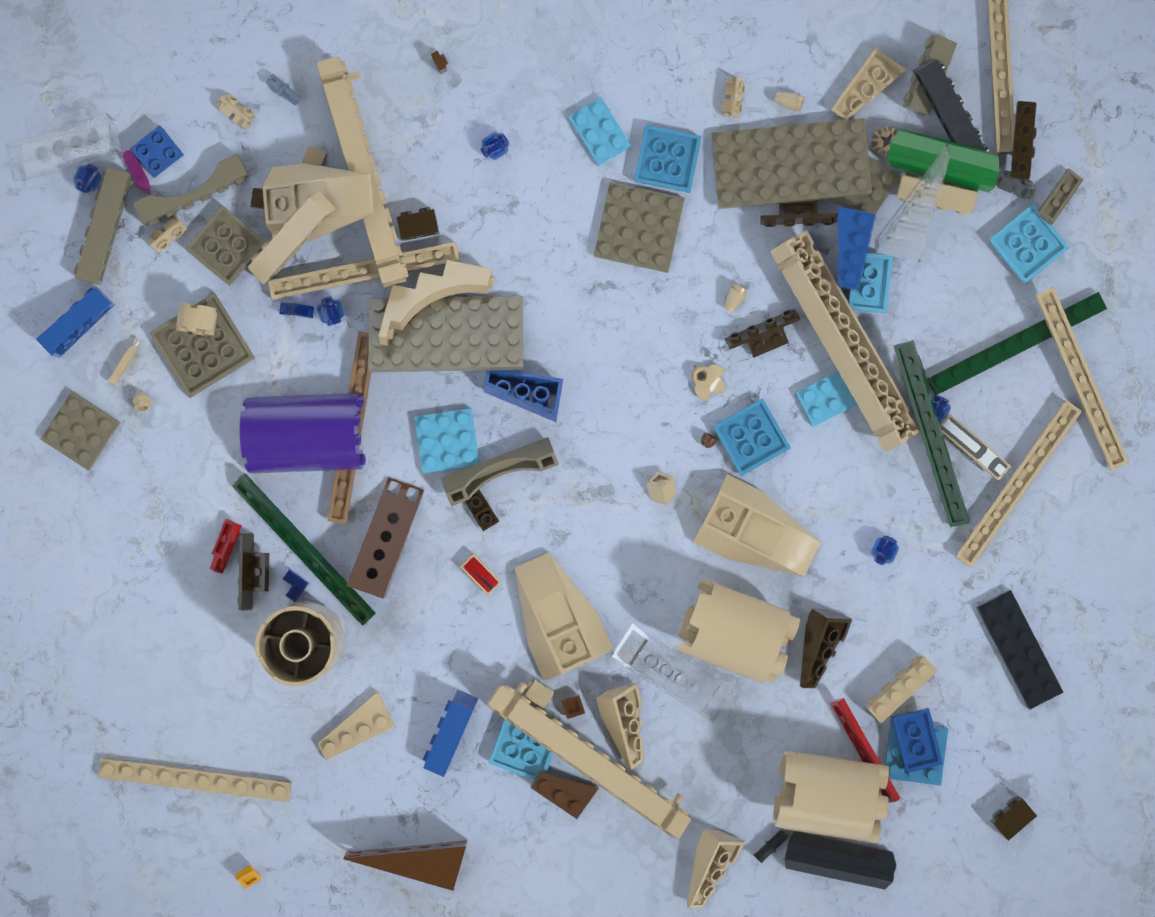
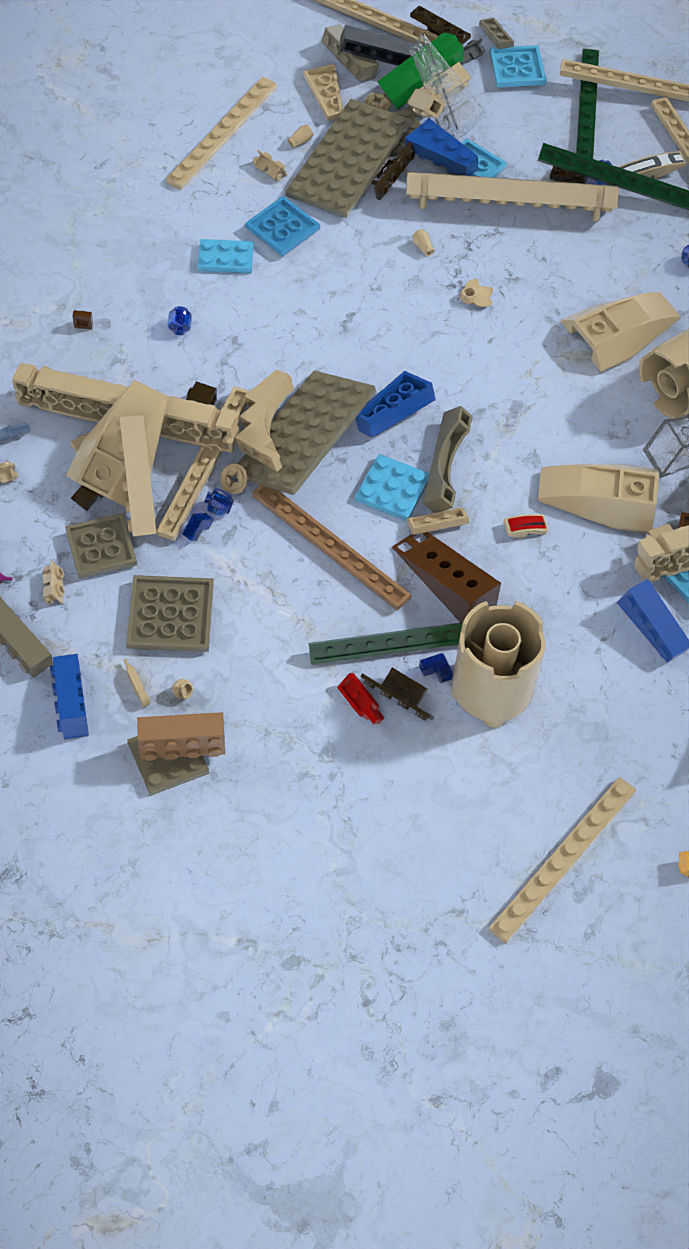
camera: 60 degrees left, 30 degrees down
(88, 437) = (181, 736): none -> medium nougat brick
(196, 319) = (146, 589): tan brick -> none
(227, 173) = (24, 576): dark tan arch -> none
(301, 433) = (311, 574): dark purple cylinder -> none
(358, 302) = (228, 483): none -> tan gear
(360, 726) = (601, 690): tan wing -> none
(435, 499) = (437, 520): none -> tan tile
(481, 510) = (473, 496): dark brown slope -> none
(639, 227) = (320, 272): dark tan plate -> none
(662, 488) = (542, 365): tan panel -> none
(708, 440) = (524, 316): reddish brown hinge -> none
(748, 23) = (221, 133): none -> tan plate
(751, 437) = (542, 290): dark azure plate -> none
(764, 336) = (468, 240): dark brown bracket -> none
(826, 399) = (546, 230): medium azure plate -> none
(891, 200) = (426, 103): none -> tan brick

